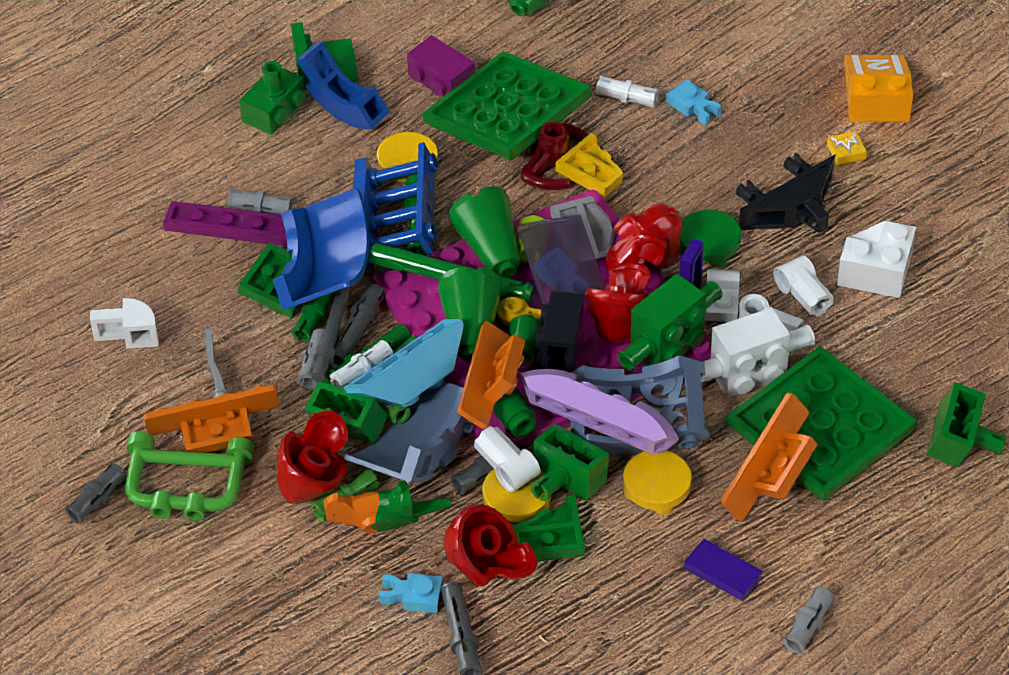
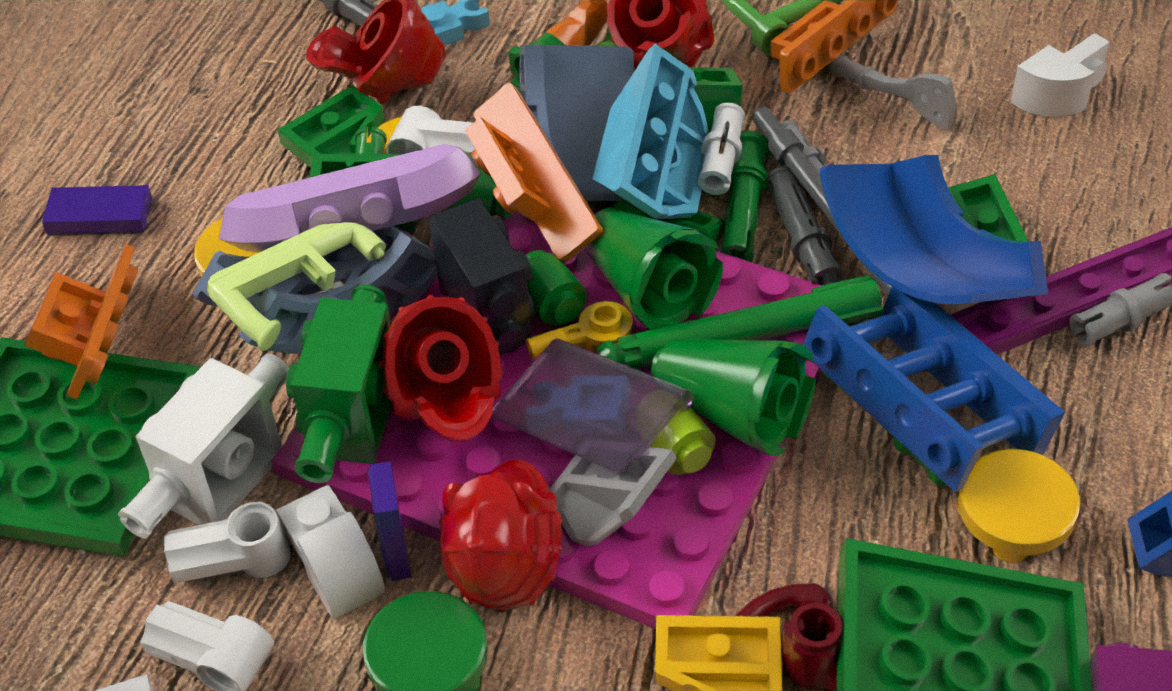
camera: 145 degrees right, 0 degrees up
(665, 379) = (278, 263): none -> yellowish green piece

